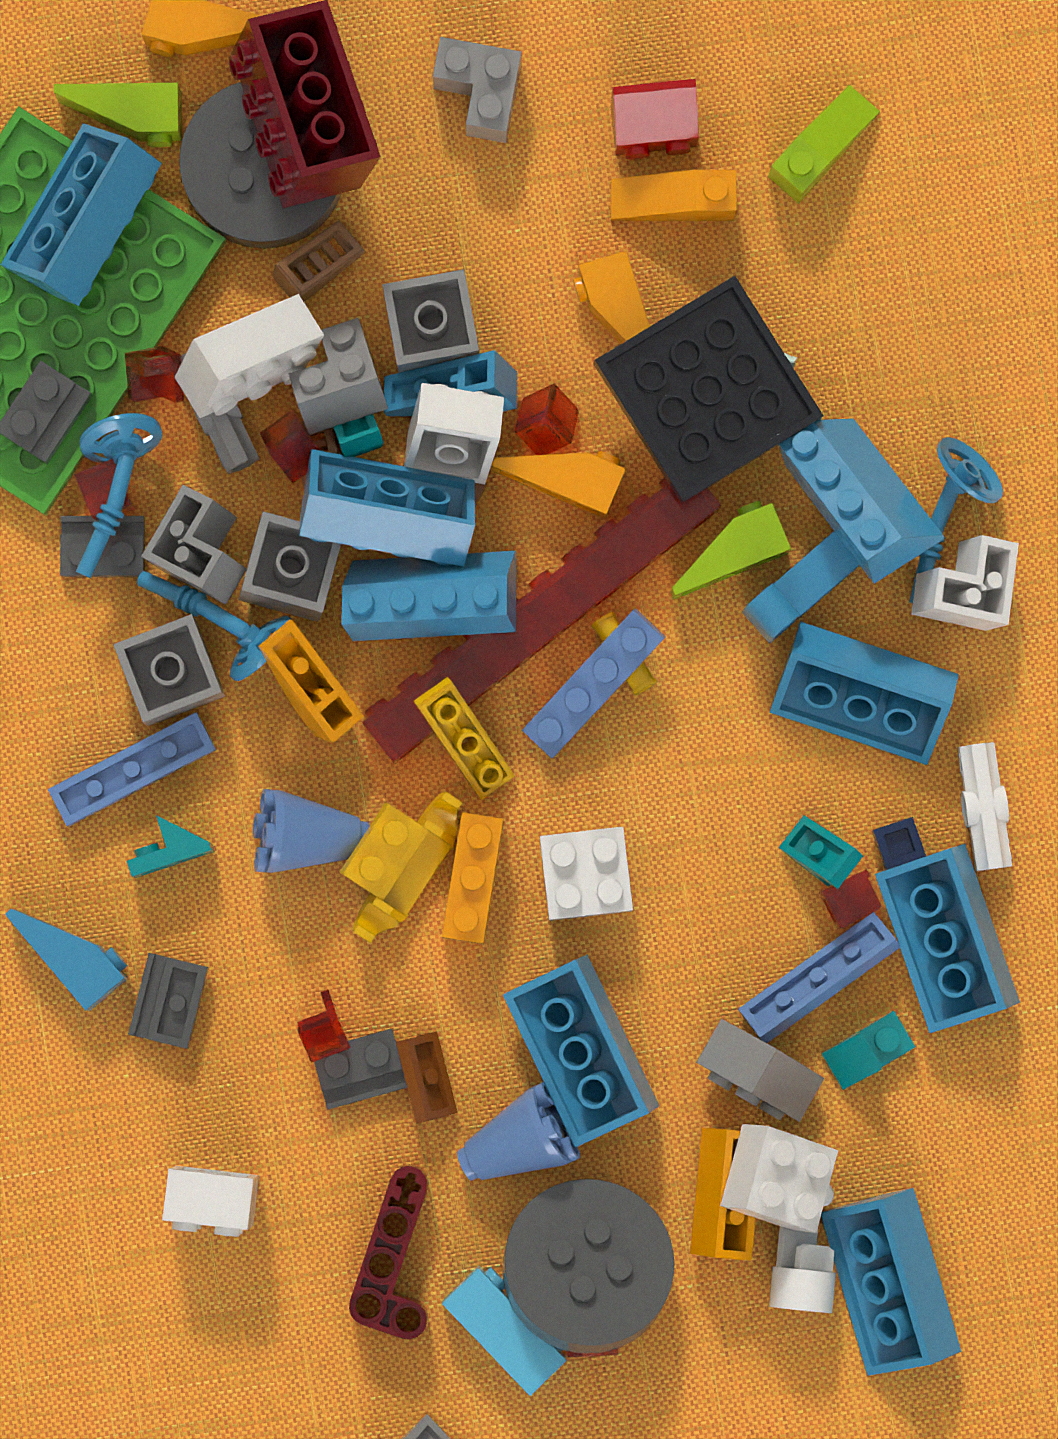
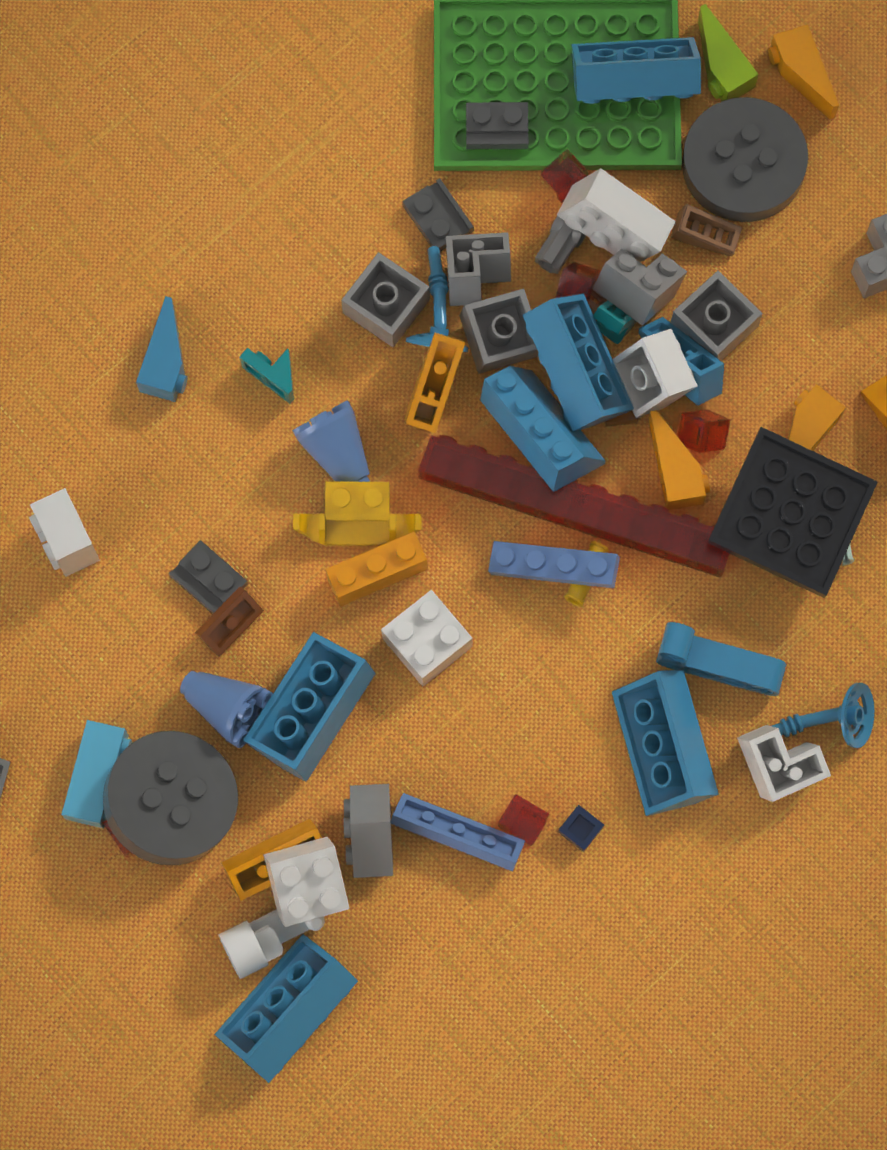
camera: 60 degrees right, 10 degrees down
(96, 485) = (474, 192): clear red panel -> none
(124, 449) = (502, 186): dark azure dish -> none
(132, 769) = (308, 319): medium blue plate -> none
(168, 1000) = (175, 432): dark grey plate -> none
(303, 104) = (796, 146): dark red brick -> none
(324, 1032) = (216, 538): clear red panel -> none
(396, 1248) = (106, 672): dark red beam -> none
(452, 723) = (467, 488): yellow tile -> none
(742, 545) = (704, 601): lime slope -> none
(820, 852) = (541, 780): teal slope -> none
(859, 495) = (792, 652): dark azure slope -> none
(868, 1050) = (431, 896): teal slope -> none
(947, 938) = (539, 898): dark azure slope -> none
(984, 806) = (643, 869): white piece -> none

